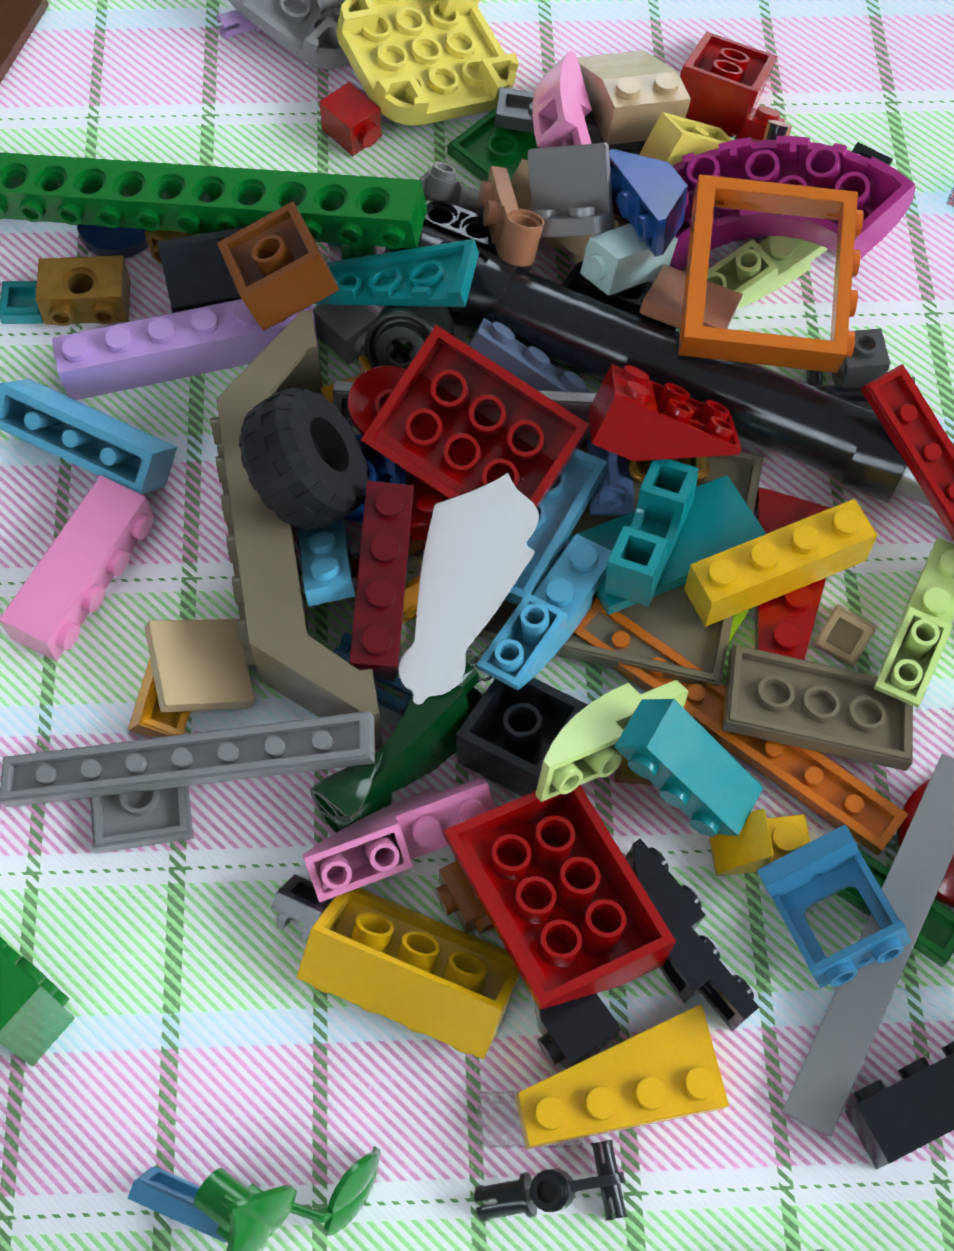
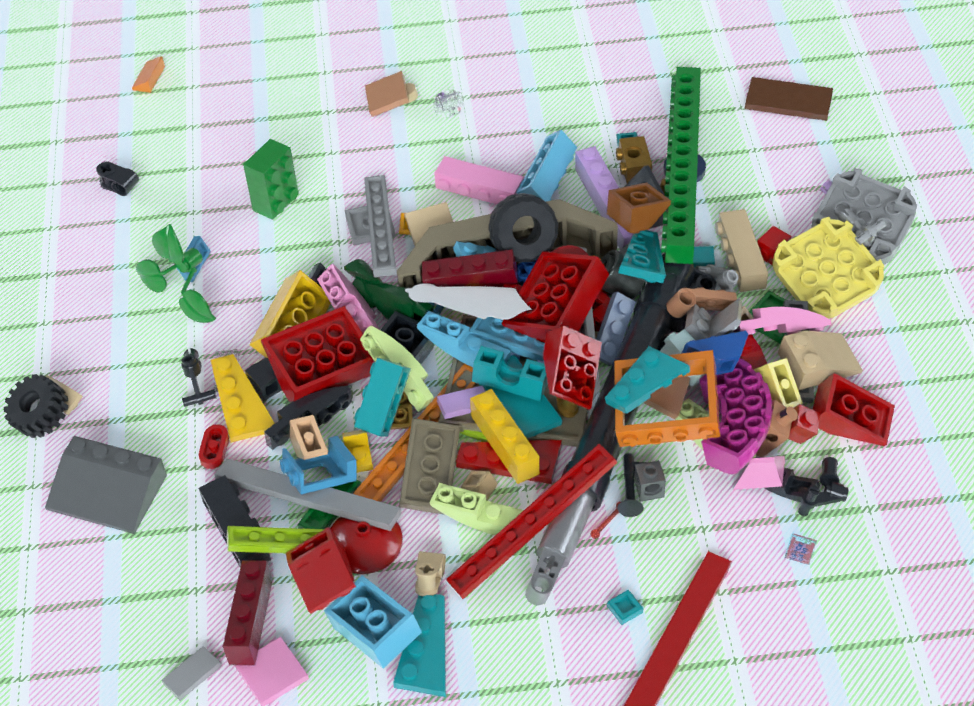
camera: 90 degrees right, 15 degrees down
(373, 152) = (742, 250): none -> tan brick
(680, 634) = (458, 402): none -> lavender tile
(748, 287) = (644, 377): none -> teal wing
(749, 1140) = (213, 449): none -> red plate
(772, 928) = (307, 438): none -> light nougat slope
(872, 131) = (833, 490): none -> black pin

